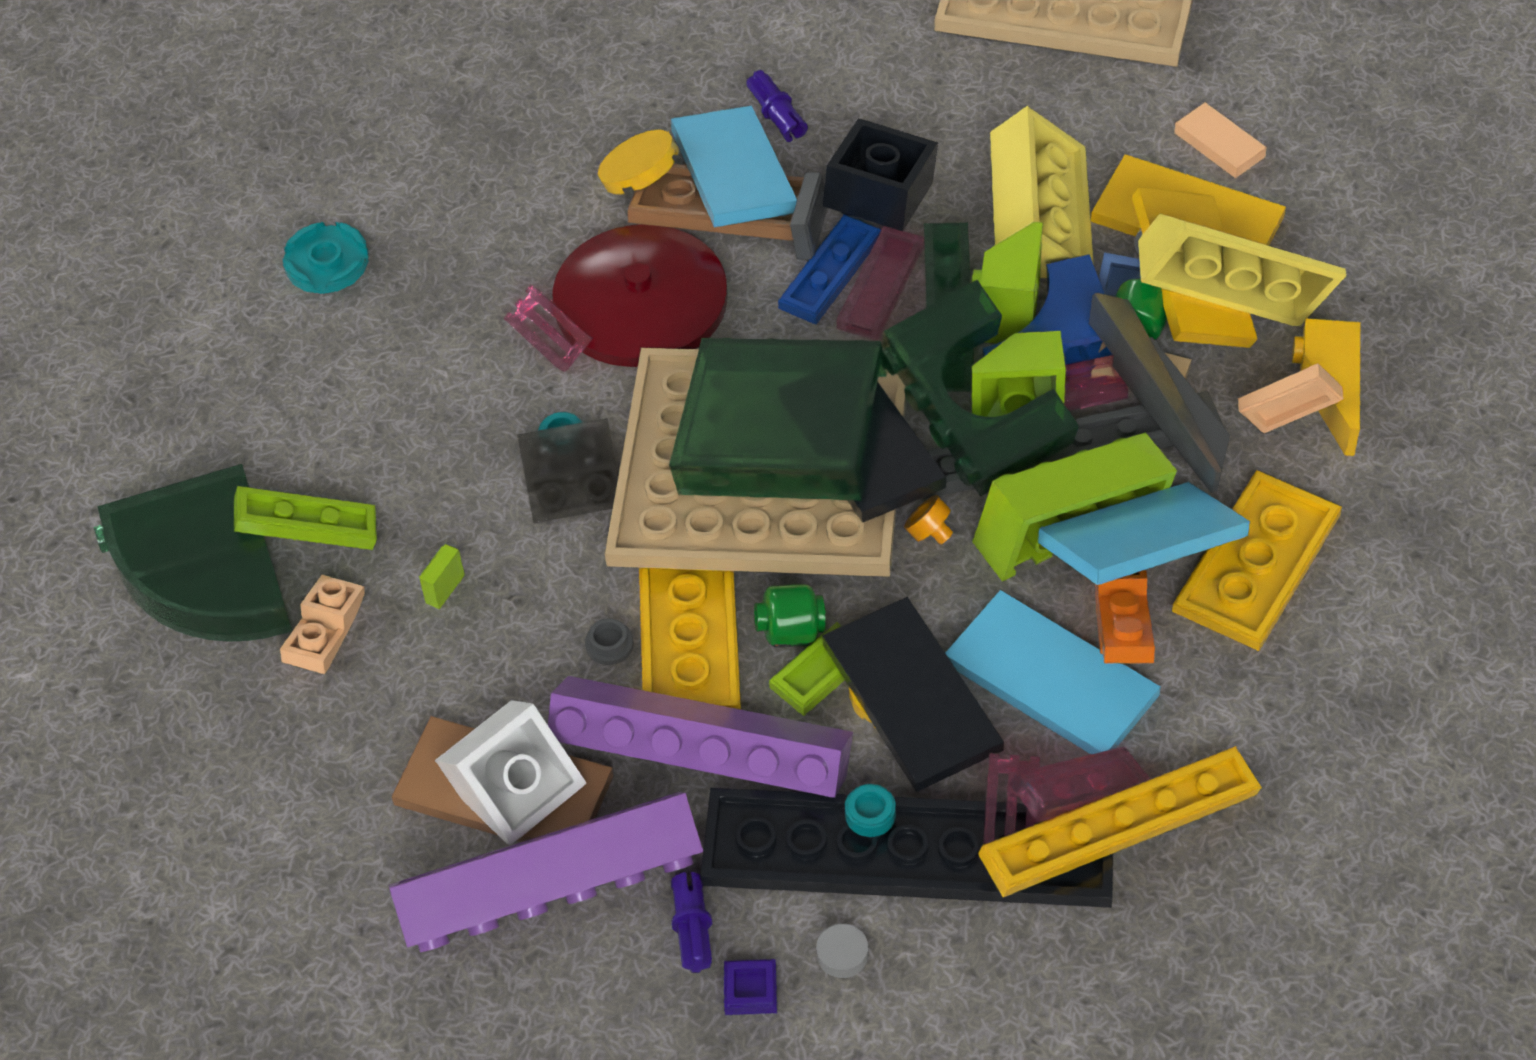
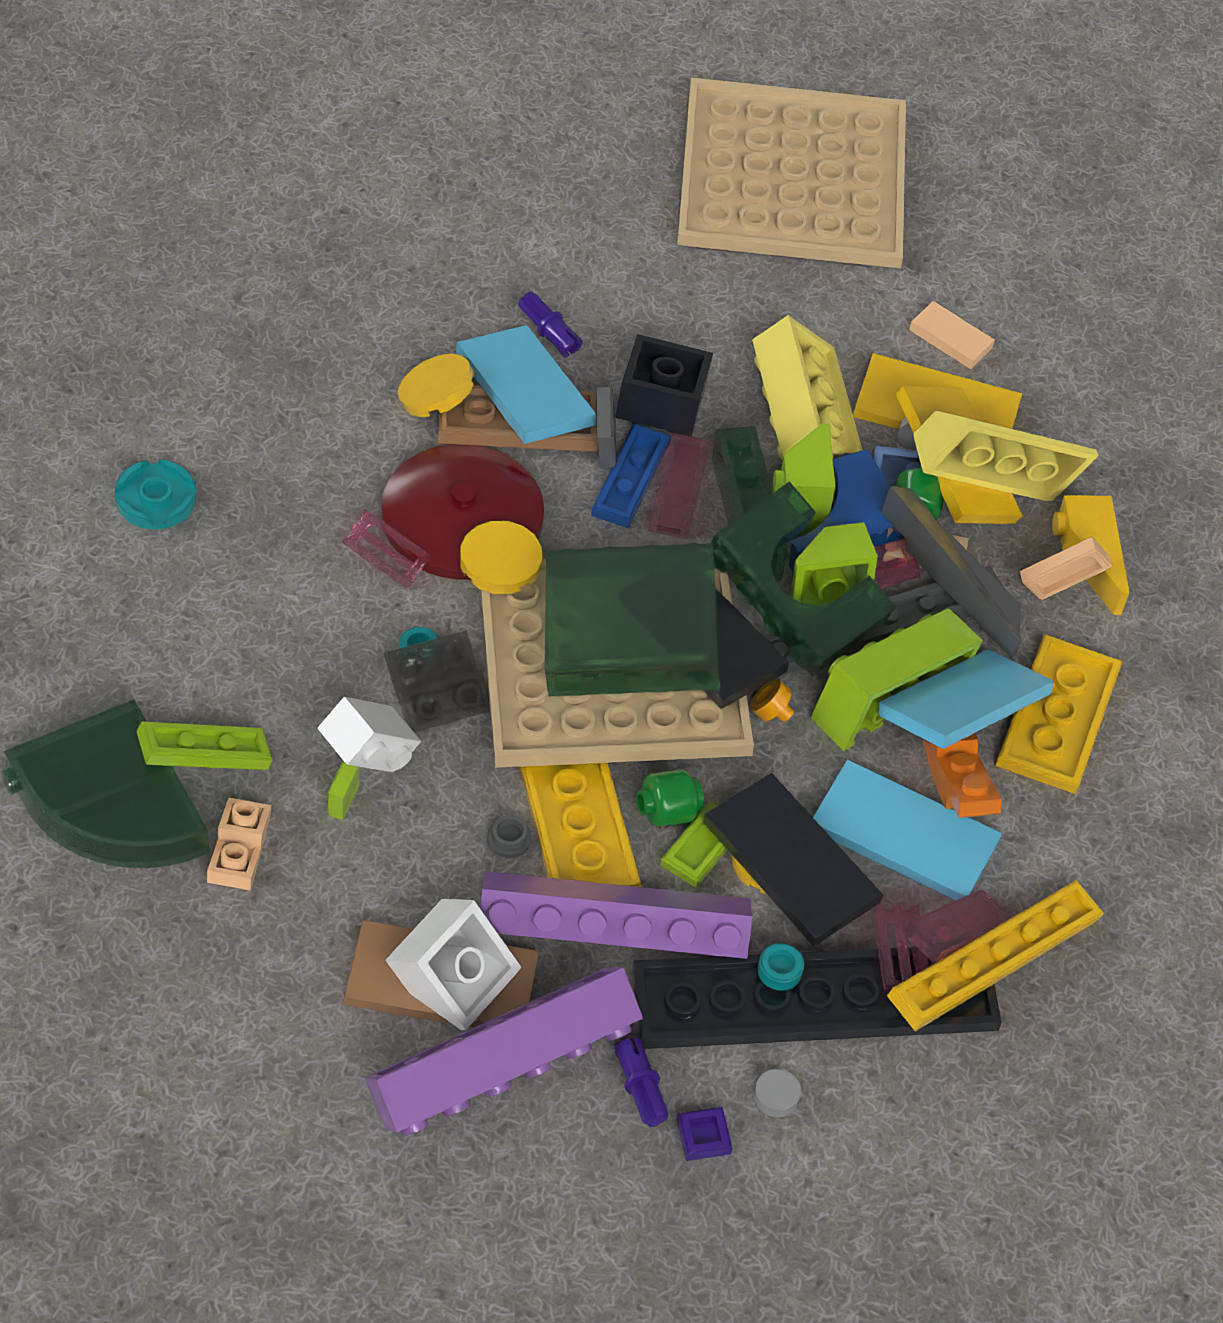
camera: 20 degrees left, 0 degrees up
(475, 519) = (369, 735): none -> white brick
(660, 343) = (501, 557): none -> yellow tile

